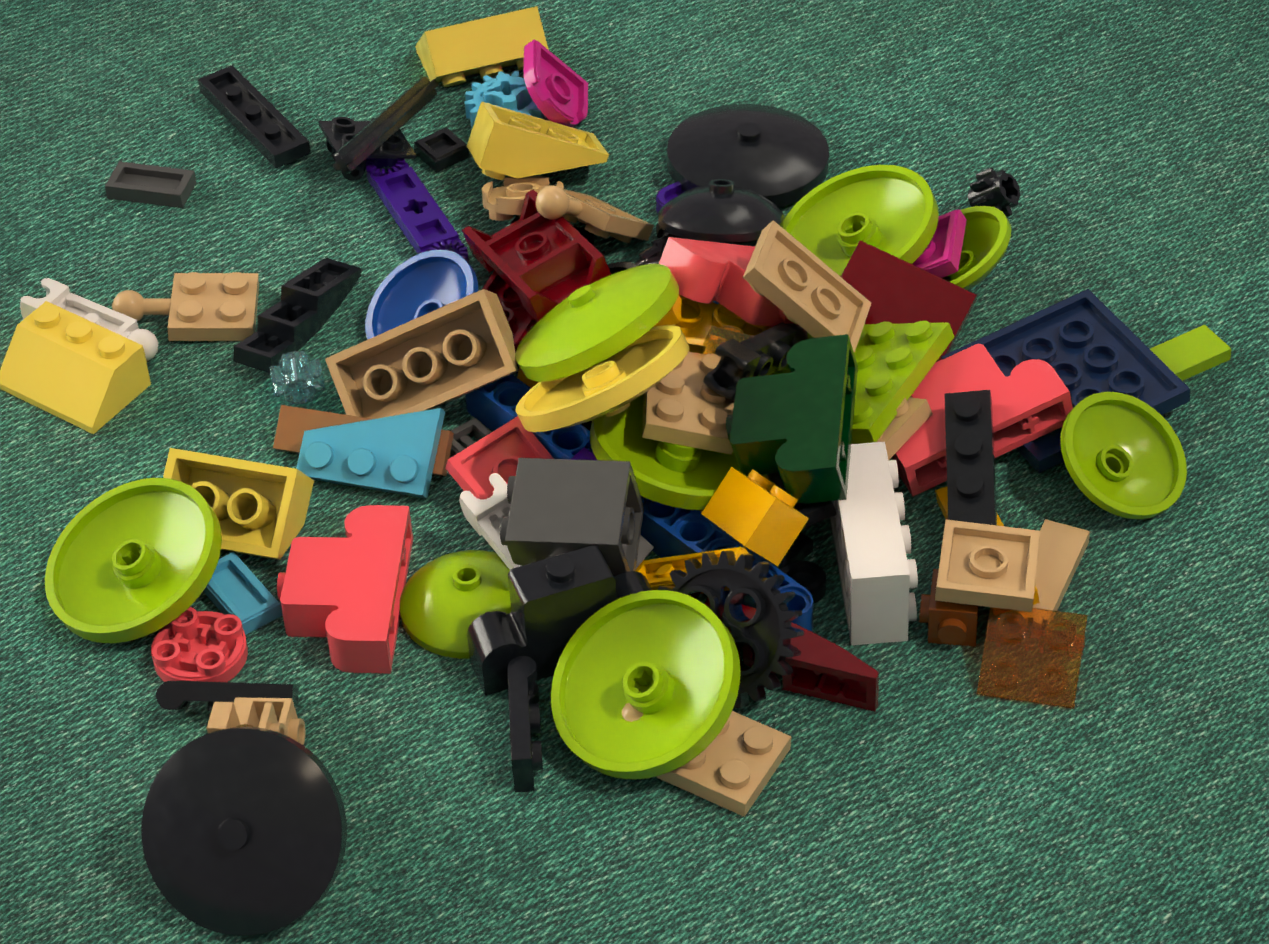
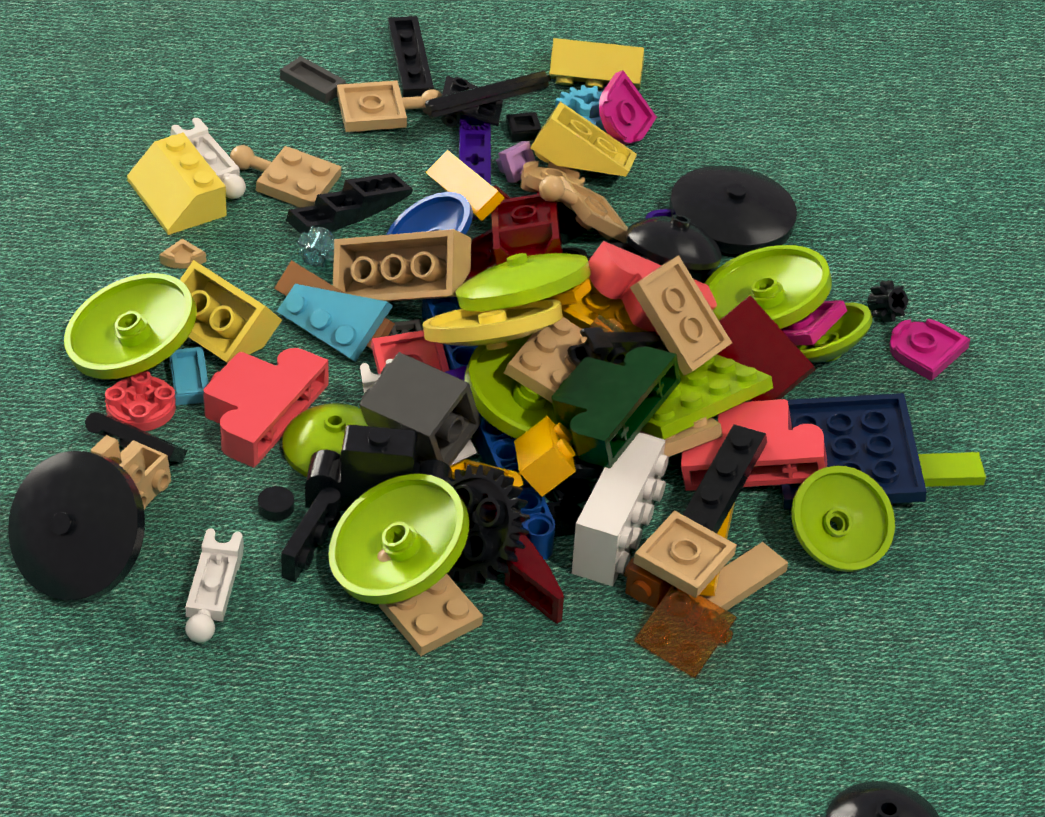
camera: 20 degrees right, 0 degrees up
(131, 451) = (181, 255): none -> tan tile
(255, 185) = (377, 105): none -> tan plate
(414, 233) = (459, 178): none -> yellow tile
(443, 836) = (212, 585): none -> white plate
(450, 704) = (276, 503): none -> black tile
(463, 191) = (513, 159): none -> lavender tile
(1063, 229) = (926, 346): none -> dark pink tile

